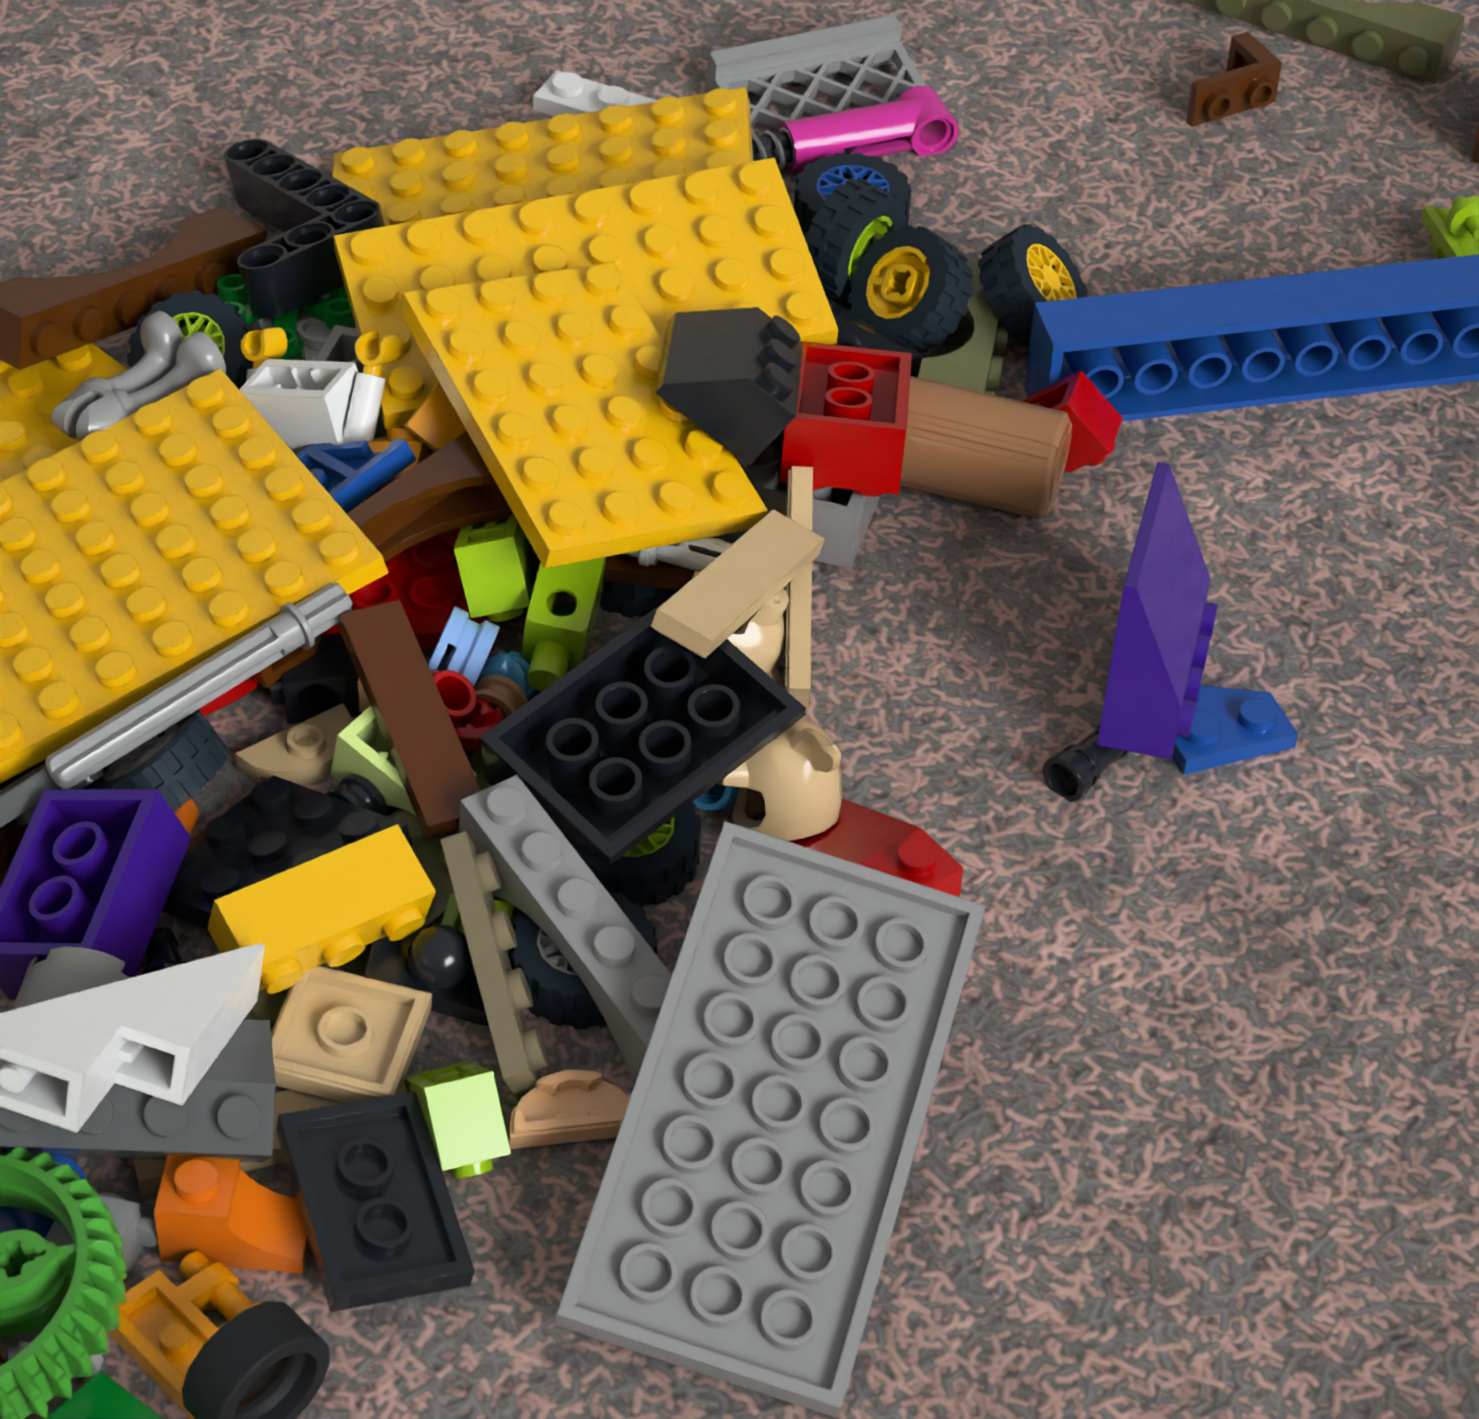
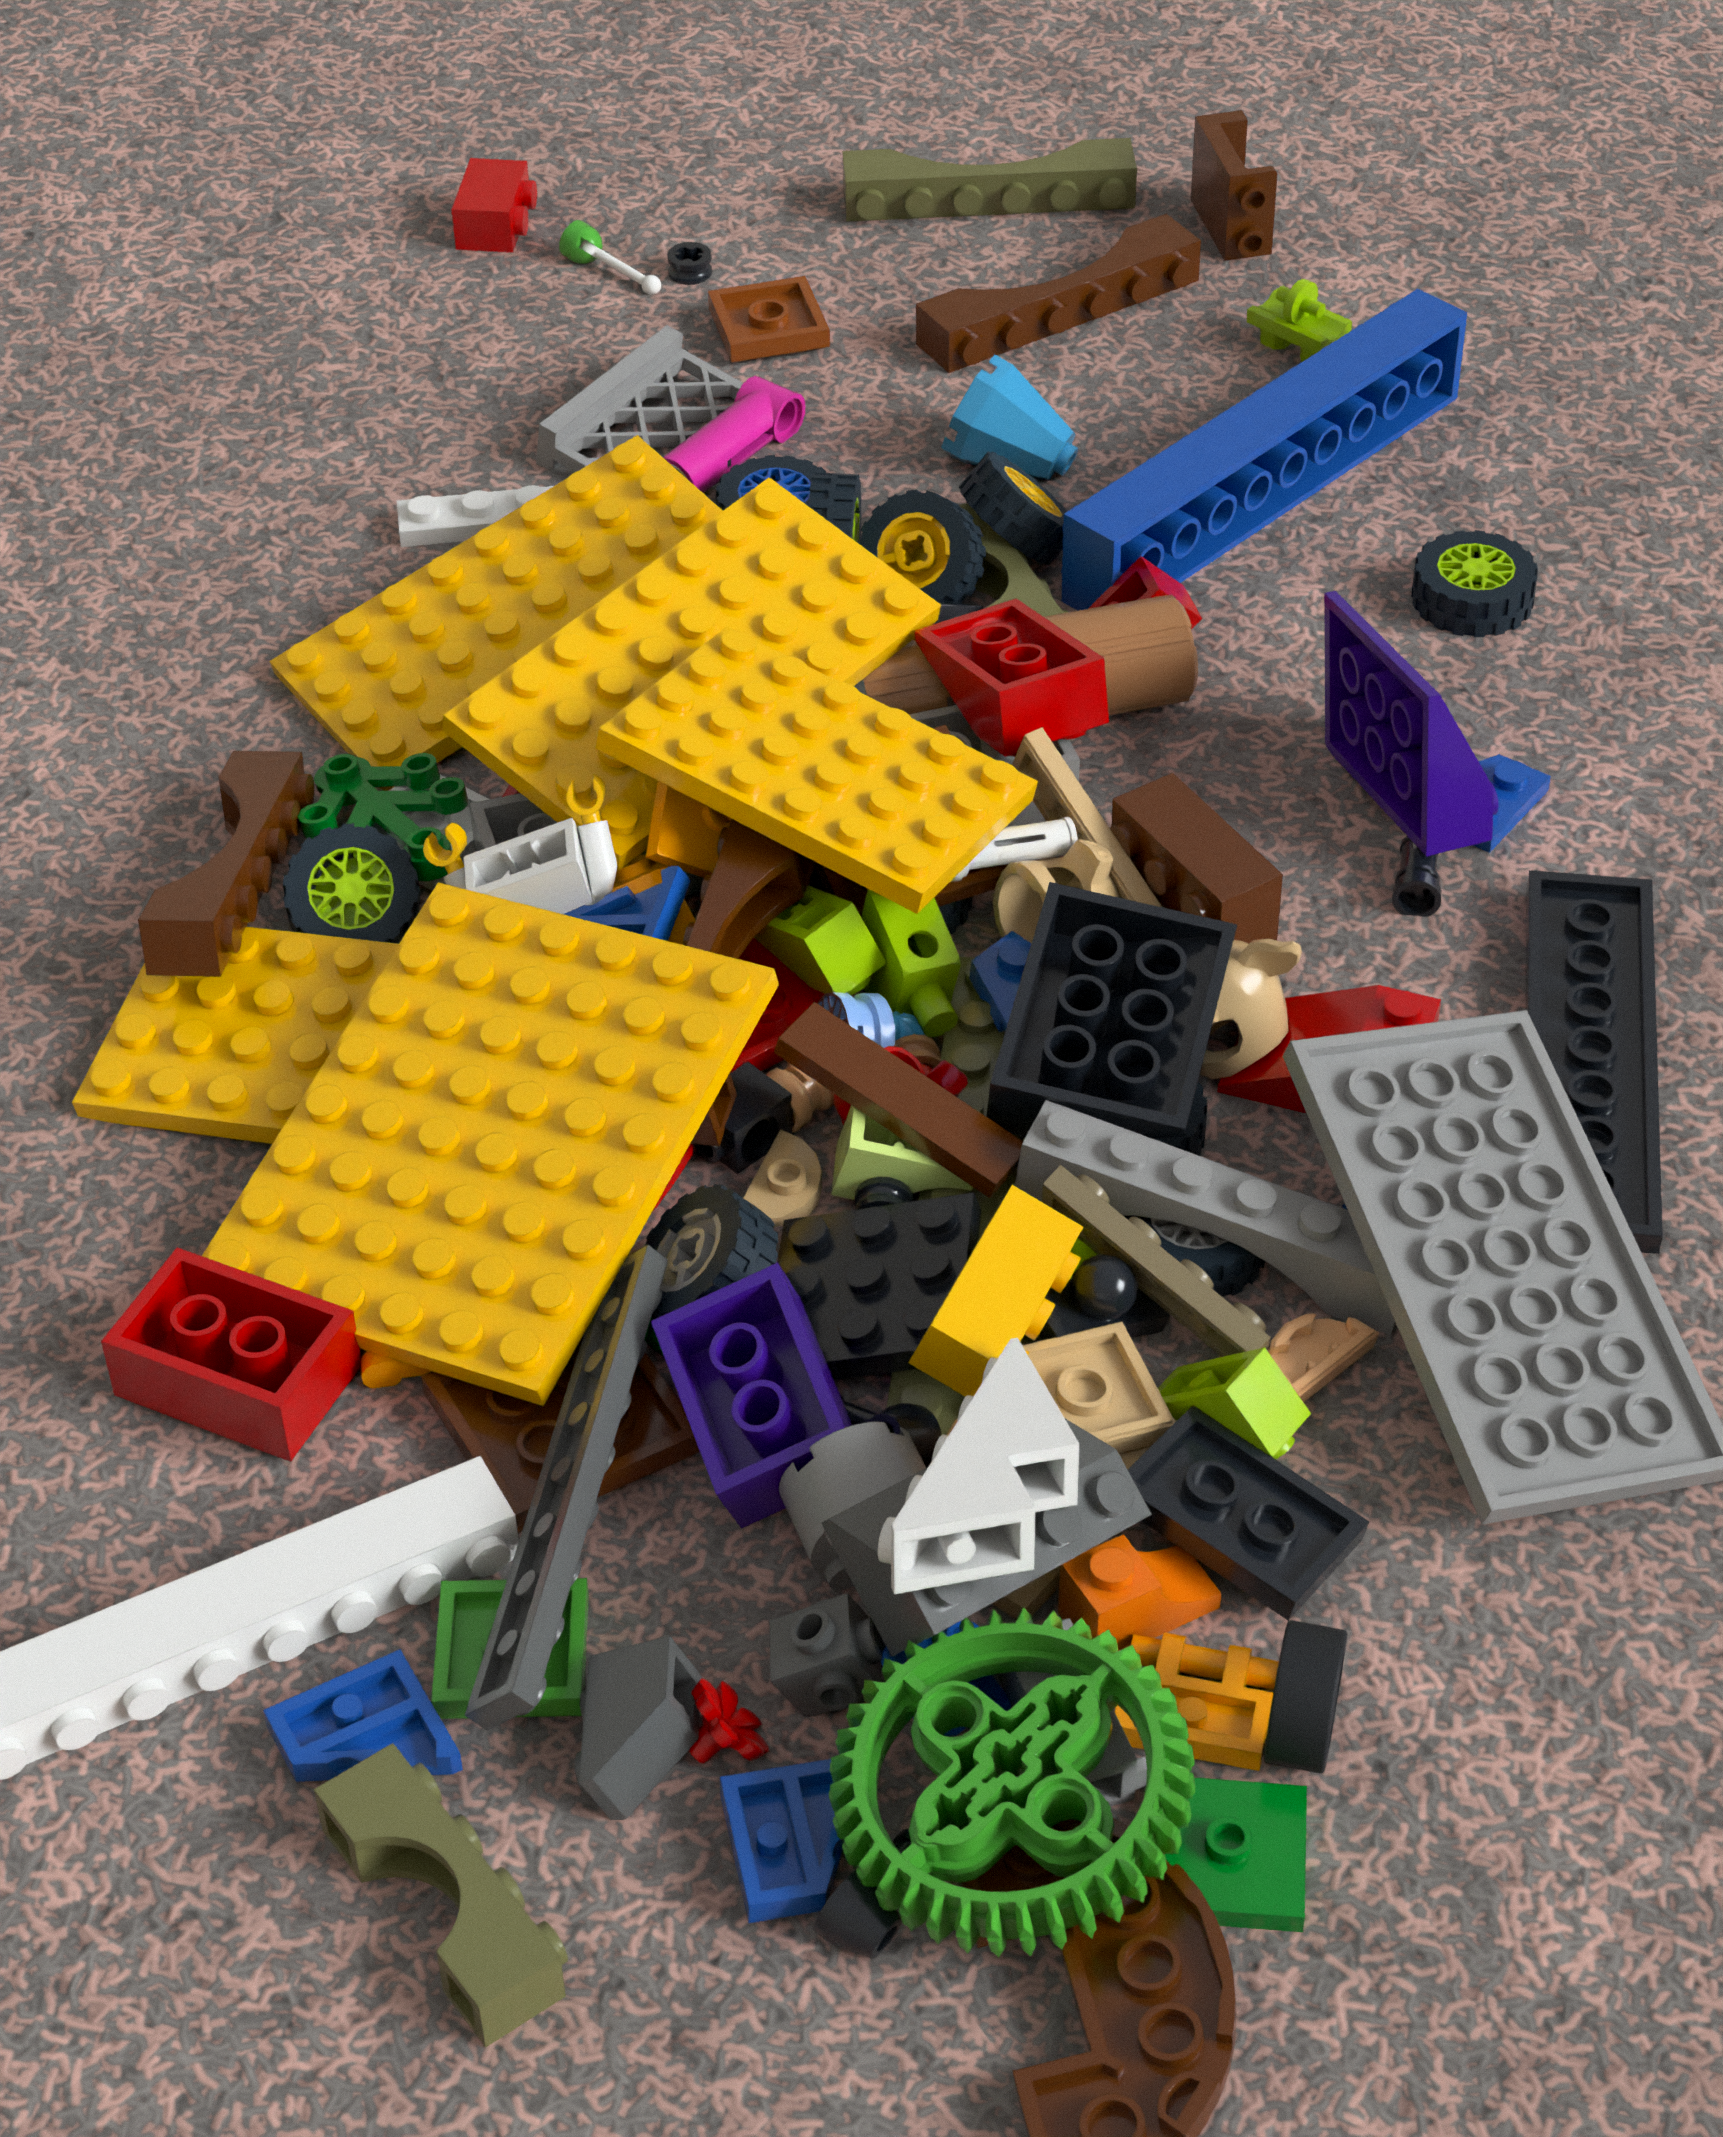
camera: 30 degrees left, 0 degrees up
(165, 368) = (350, 897): light grey piece -> none
(198, 686) = (745, 1072): light grey axle -> none
(309, 210) = (379, 721): black beam -> none
(732, 375) = (923, 674): black slope -> none
(737, 583) = (1088, 850): tan tile -> none
(859, 661) = (1197, 858): none -> reddish brown brick
(1004, 47) = (768, 319): none -> dark orange plate
(1088, 987) = (1597, 1020): none -> black plate
(1103, 214) = (1013, 420): none -> dark azure cone
(1183, 125) = (979, 323): none -> reddish brown arch
(1247, 84) = (994, 256): reddish brown bracket -> none
(1400, 534) = (1474, 583): none -> black wheel

